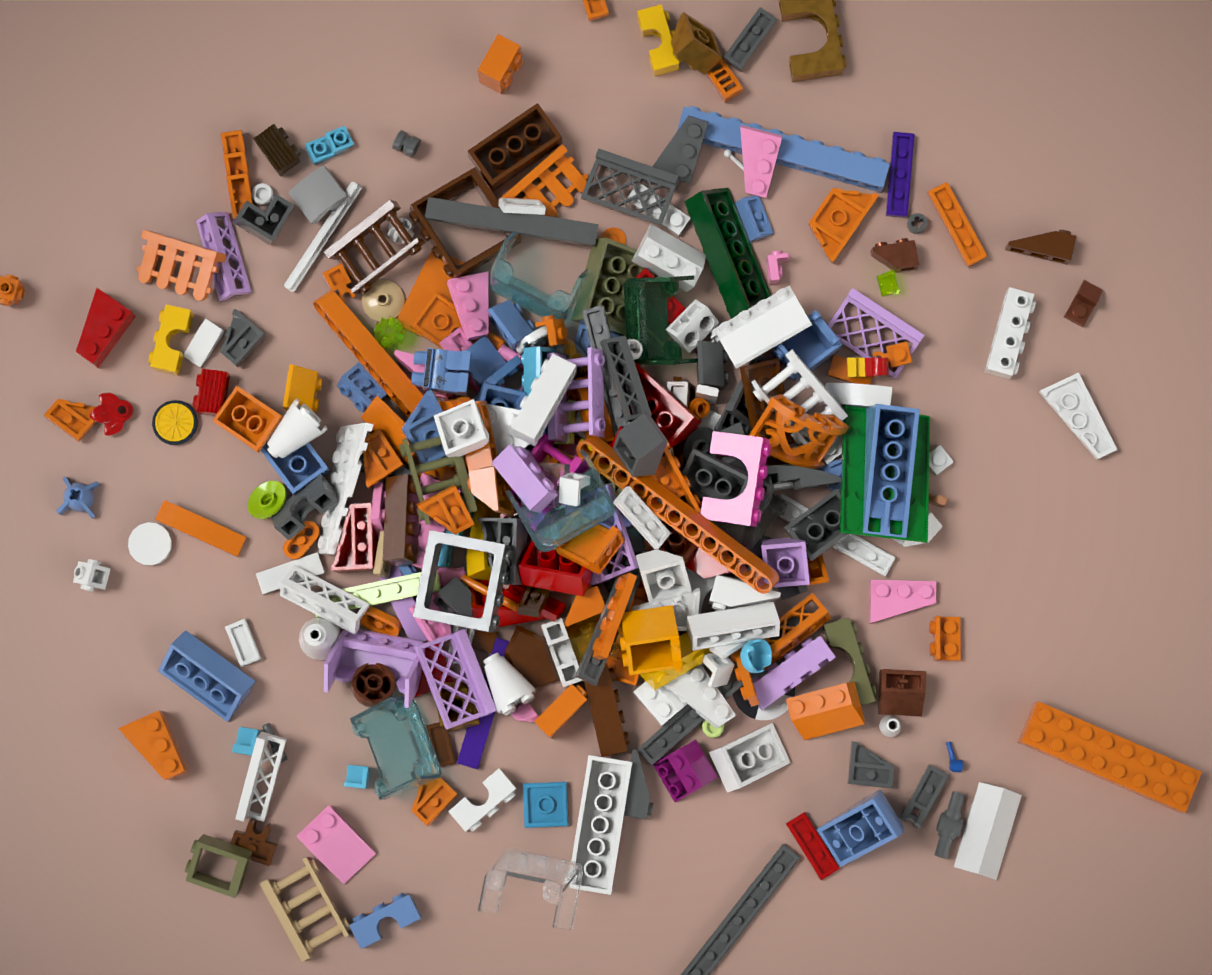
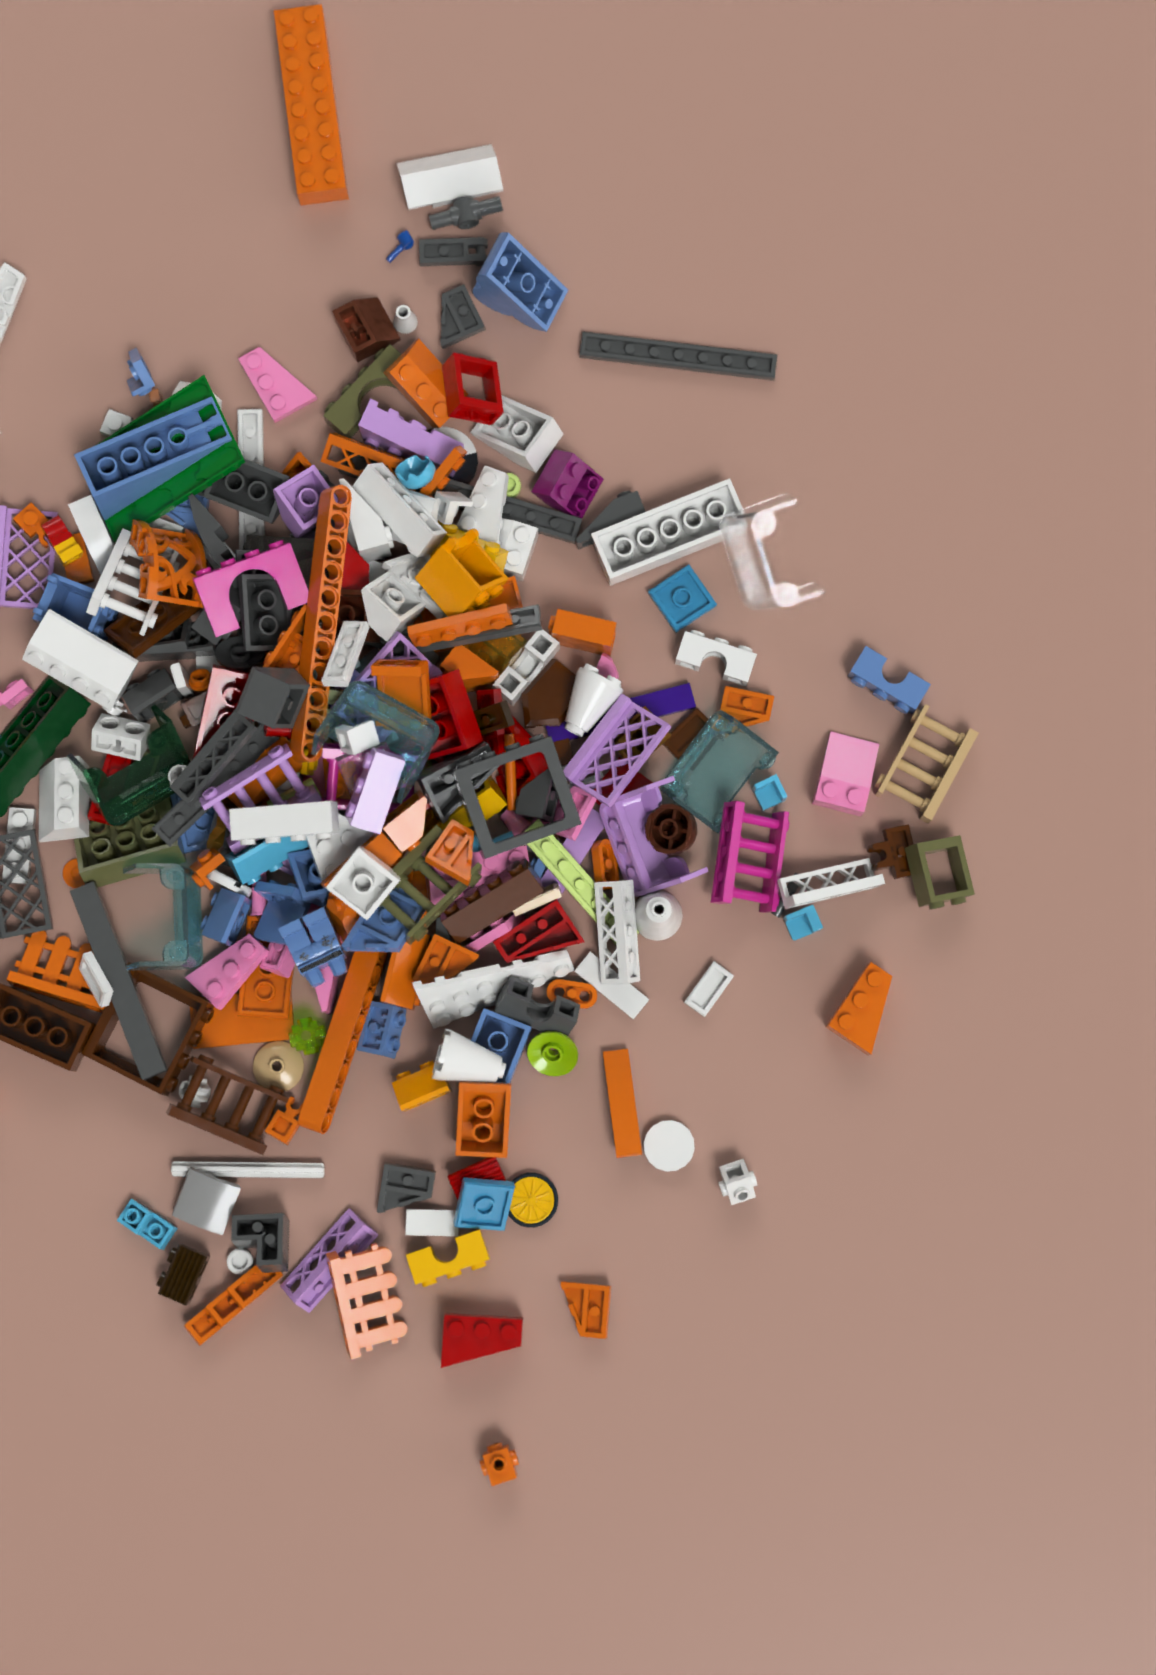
camera: 120 degrees left, 0 degrees up
(78, 497) = (666, 1249): medium blue piece -> none
(108, 413) = (563, 1273): red plate -> none
(190, 385) = (483, 1204): none -> dark azure tile
(206, 675) = (764, 1003): medium blue slope -> none
(329, 715) = (727, 854): none -> dark pink fence
(407, 144) = (99, 1143): dark grey wheel -> none
(606, 715) = (562, 585): reddish brown brick -> none
(793, 720) = (469, 408): none -> red window
(812, 846) = (564, 328): red tile -> none
(946, 638) = (288, 318): orange bracket -> none
(962, 498) = (142, 381): none -> medium blue bracket

